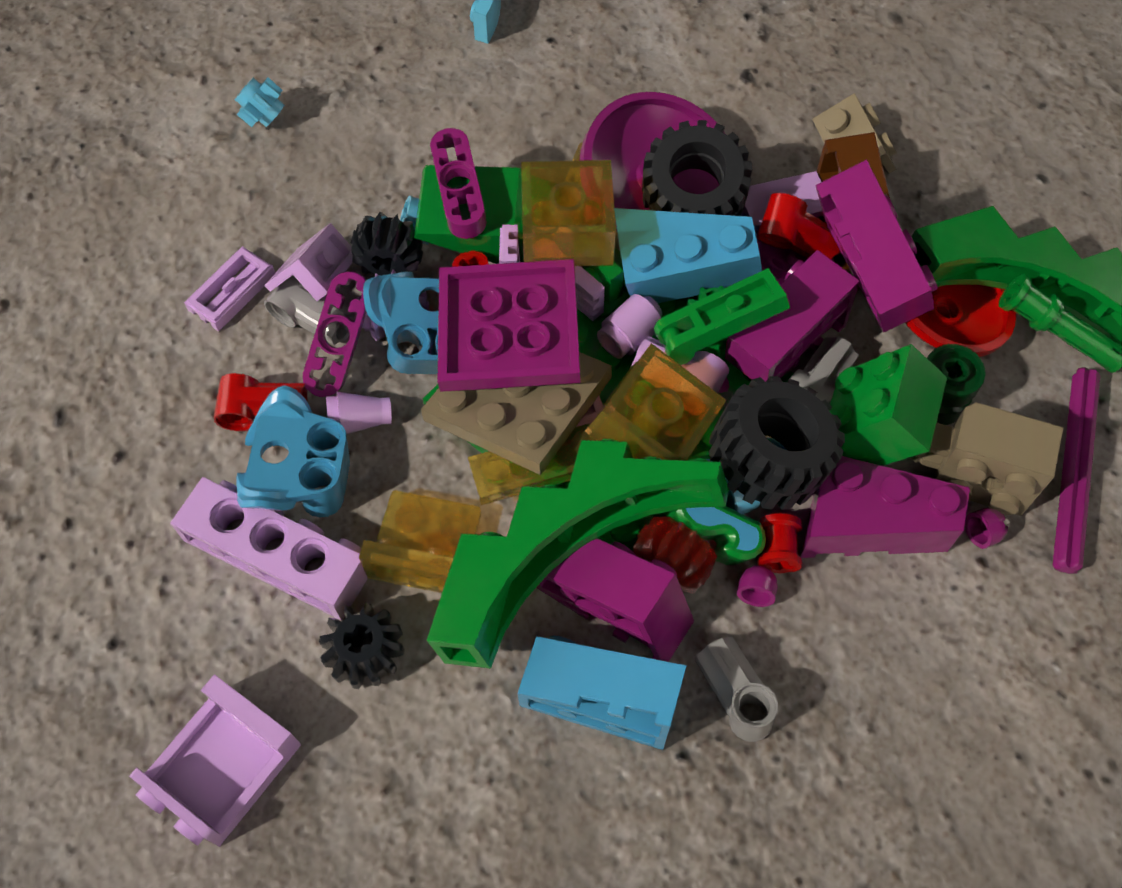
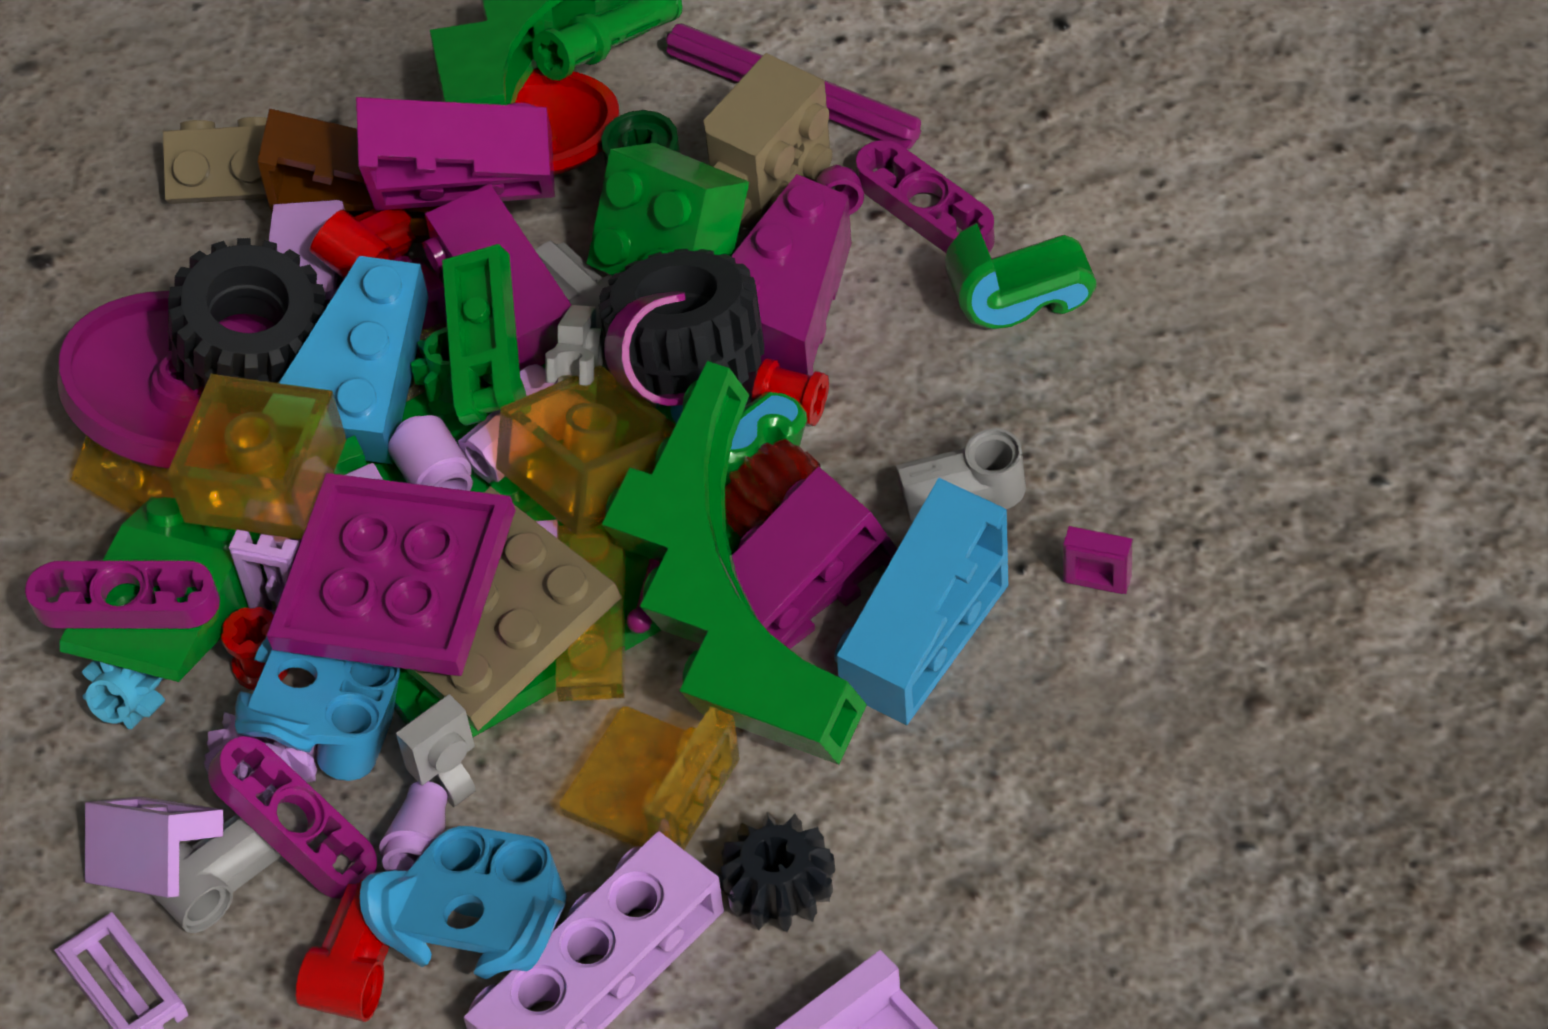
camera: 70 degrees left, 10 degrees down
(386, 245) = (162, 736): black gear -> none
(402, 399) = (437, 745): none -> light grey plate
(689, 814) = (1097, 560): none -> magenta tile
(700, 415) = (619, 339): none -> magenta helmet
(726, 377) = (578, 347): none -> light grey plate
(758, 586) = (837, 431): magenta hinge -> none
(943, 685) = (1018, 283): none -> green animal
(986, 603) = (914, 178): none -> magenta beam

